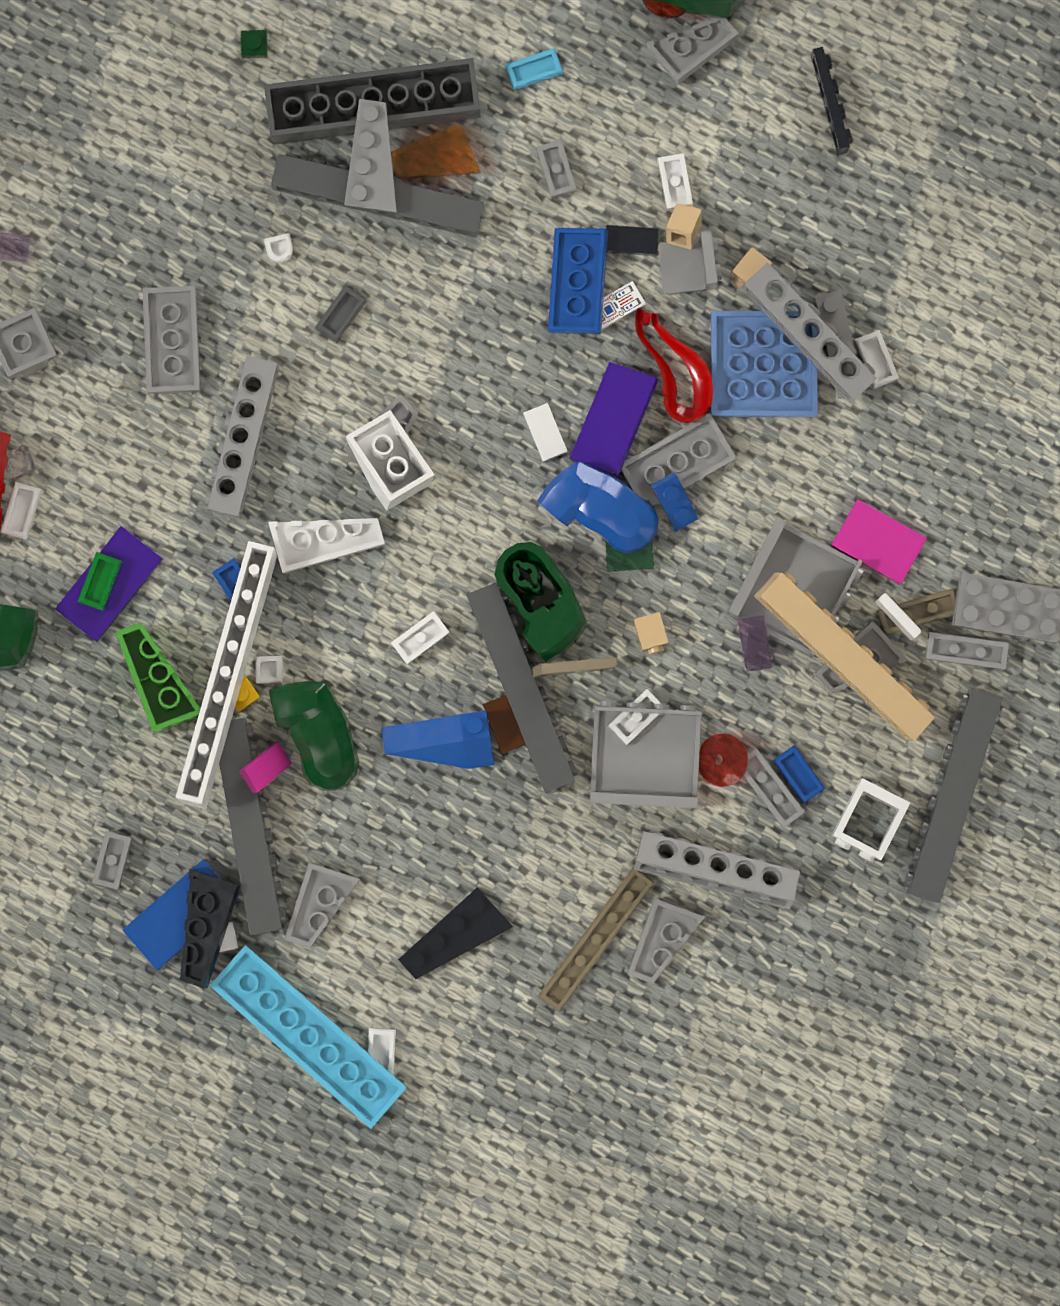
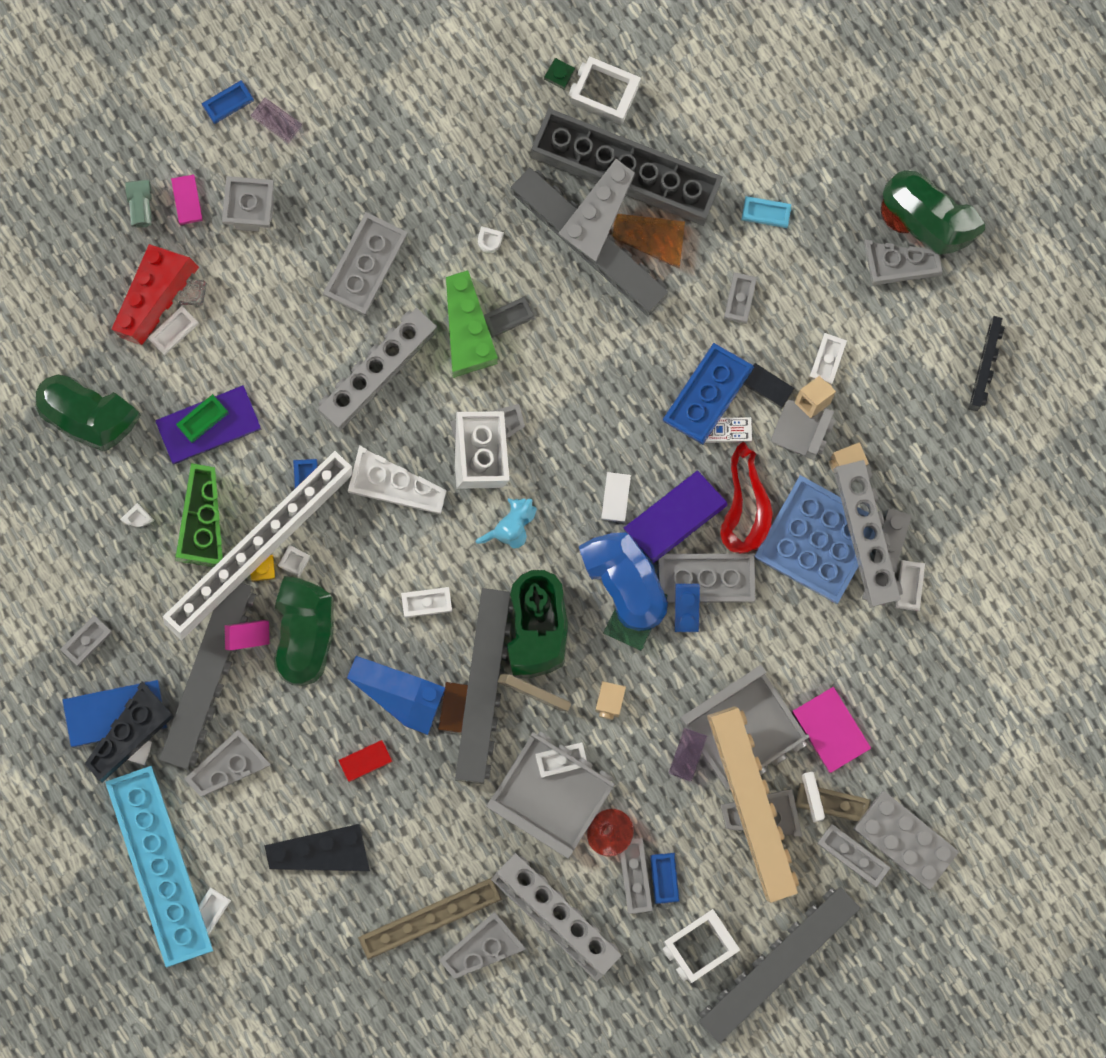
camera: 20 degrees right, 5 degrees down
(92, 712) = (137, 517): none -> white tile
(308, 58) = (617, 116): none -> white window
(310, 350) = (469, 334): none -> bright green wedge
(448, 823) = (365, 761): none -> red tile
(461, 519) = (511, 528): none -> medium azure animal

